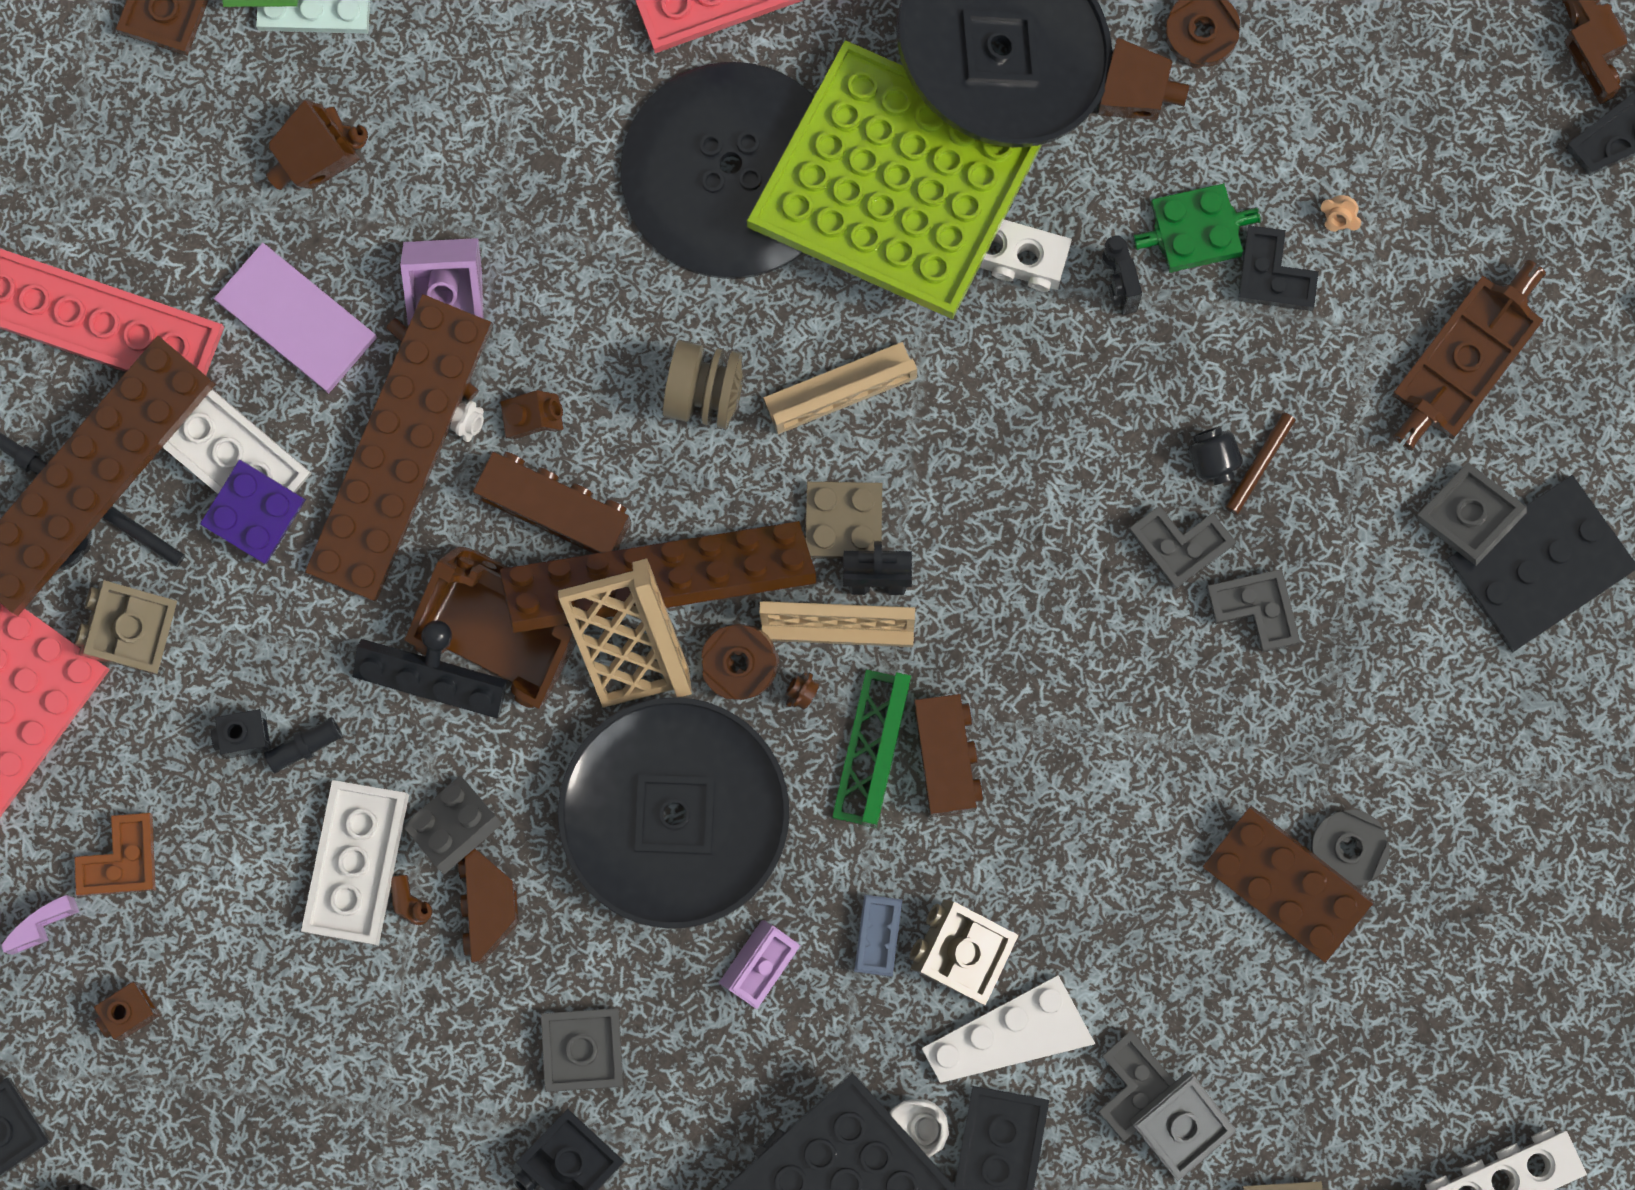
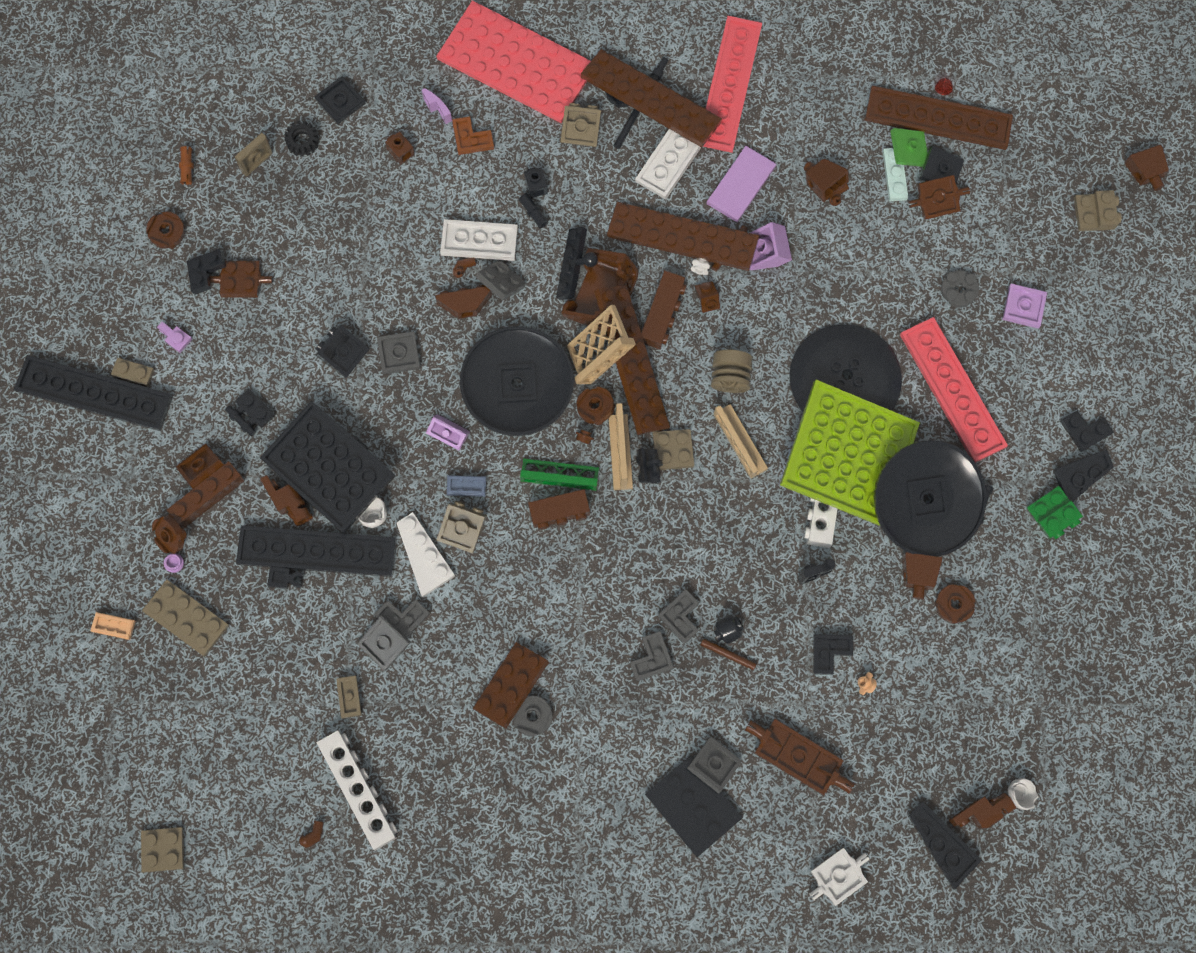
camera: 75 degrees right, 5 degrees down
(253, 511) = (642, 173): dark purple plate -> none
(1196, 228) = (848, 610): green plate -> none

